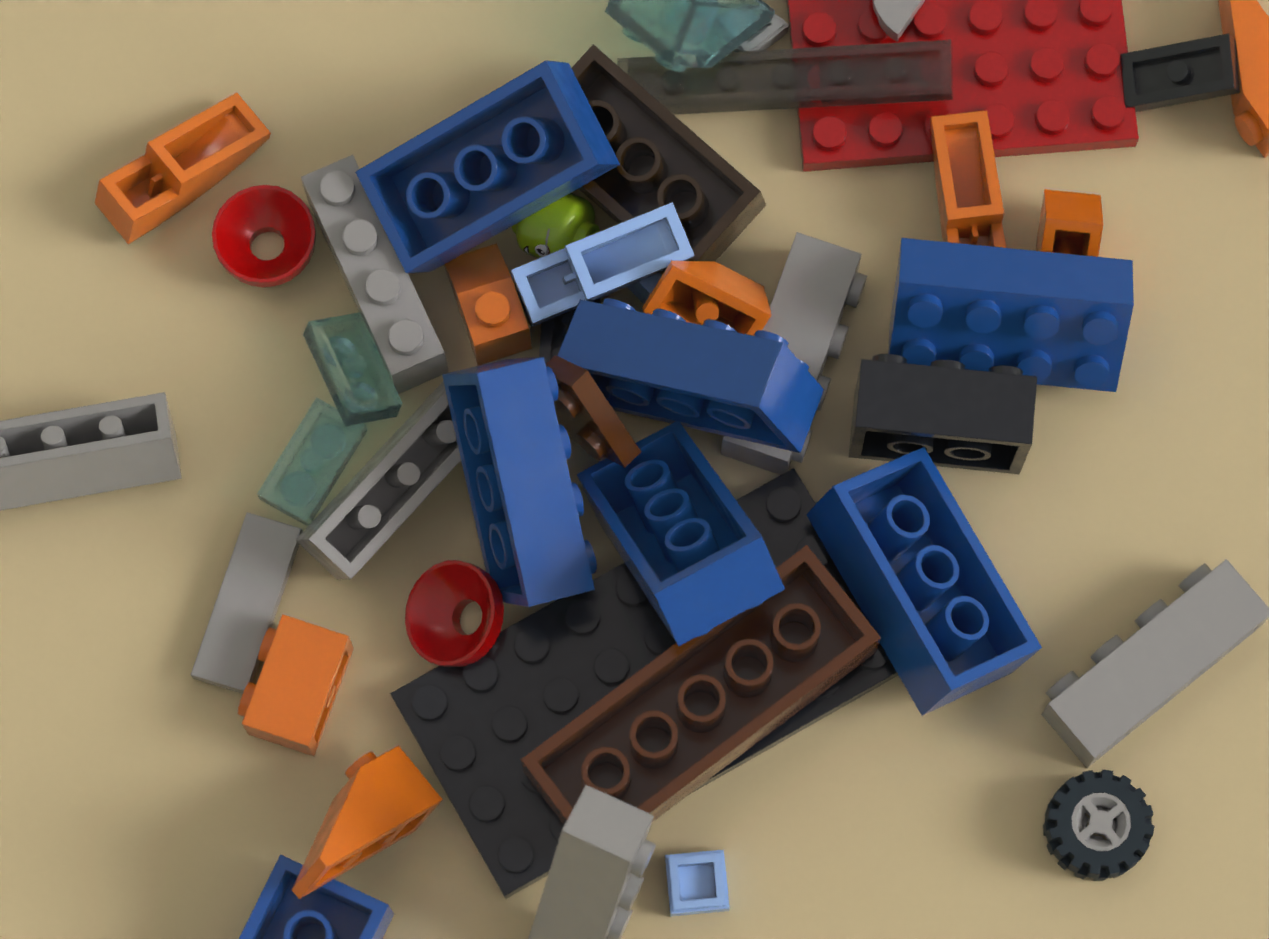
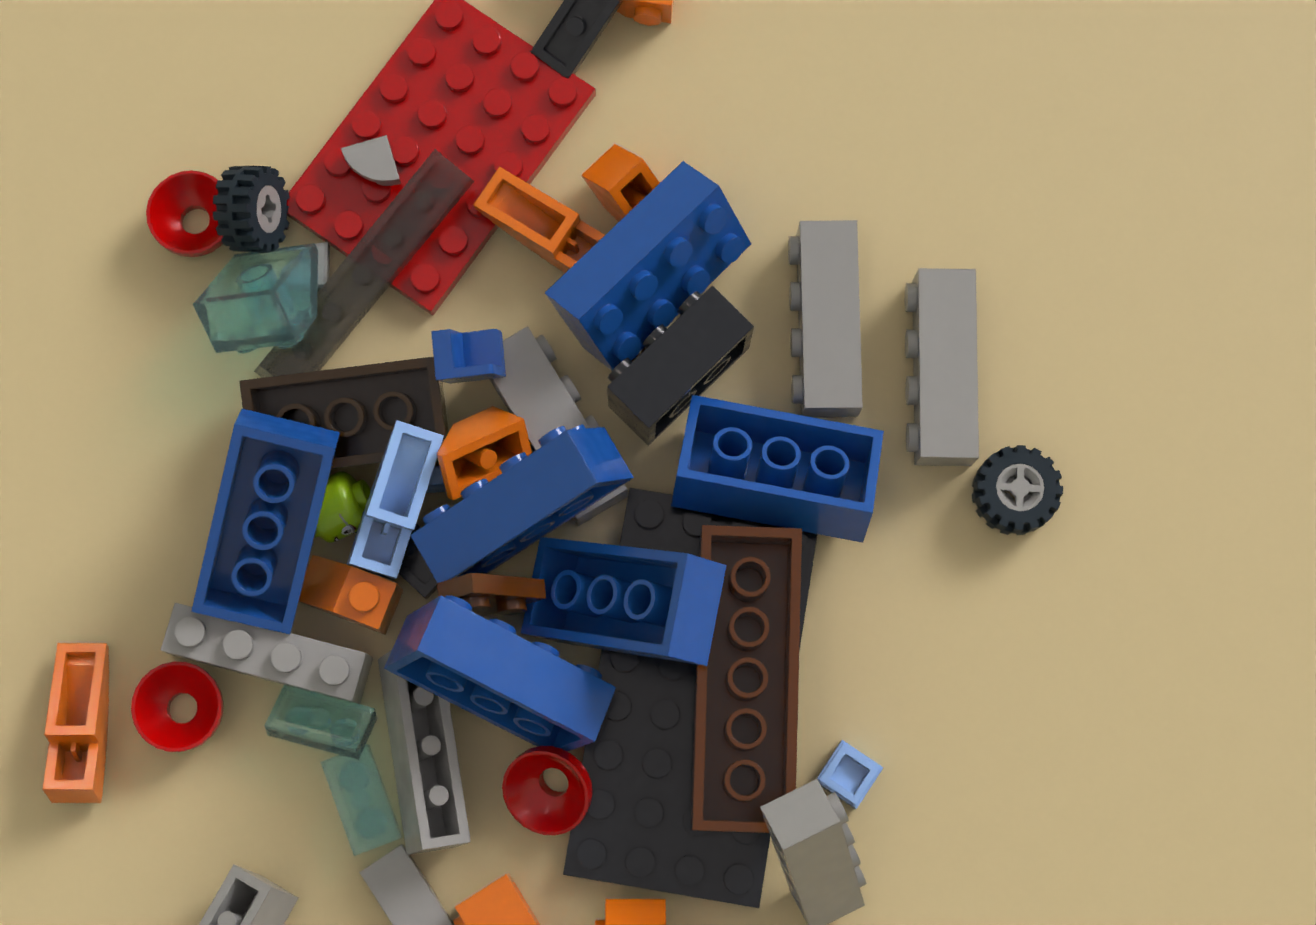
camera: 55 degrees left, 5 degrees up
(786, 220) = (468, 355): none -> blue panel
(1107, 518) = (828, 319): none -> light grey brick

